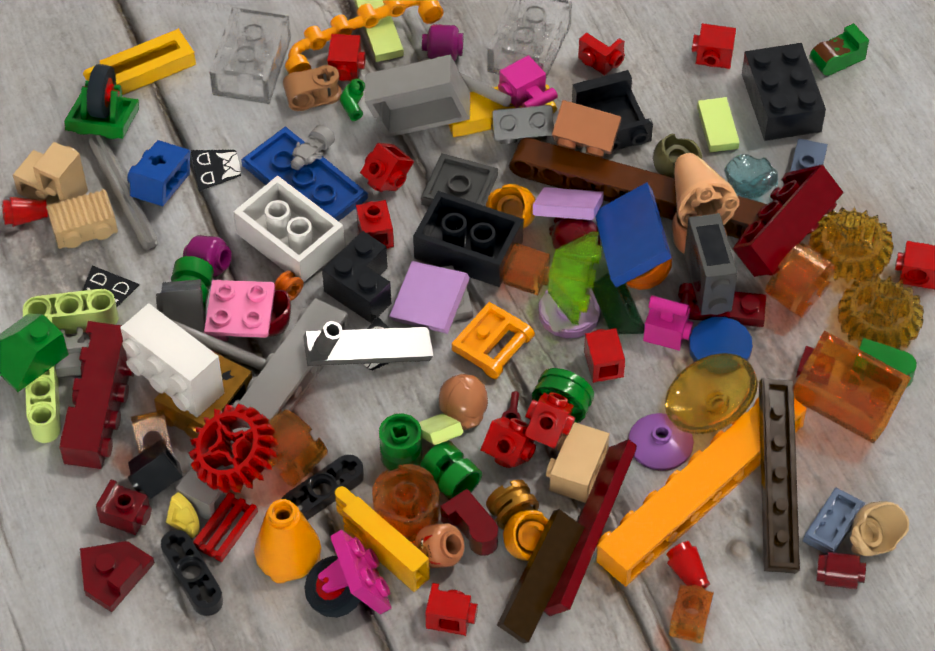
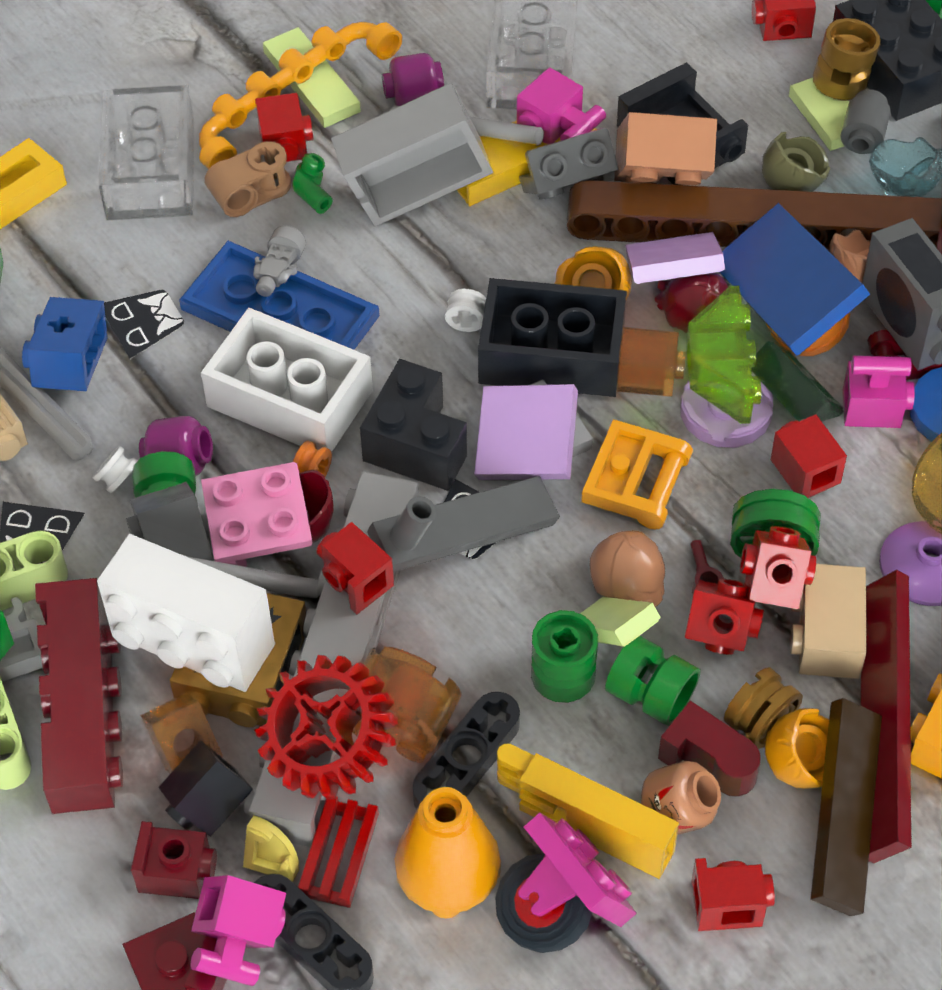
camera: 15 degrees left, 0 degrees up
(147, 547) = (238, 917): none -> dark pink brick
(164, 261) = (114, 469): none -> white bush
(287, 357) = (356, 566): none -> red brick
(376, 221) = (409, 339): red brick -> none
(386, 167) = (397, 265): red brick -> none
(407, 499) = (609, 738): clear orange brick -> none
(419, 206) = (465, 310): none -> white bush
(461, 179) = (504, 256): dark grey tile -> none
(600, 56) = (633, 52): red bracket -> none
(702, 190) = (862, 196): light nougat cone -> none
(734, 138) = (865, 122): none -> dark grey brick
(737, 91) = (846, 58): none -> pearl gold wheel

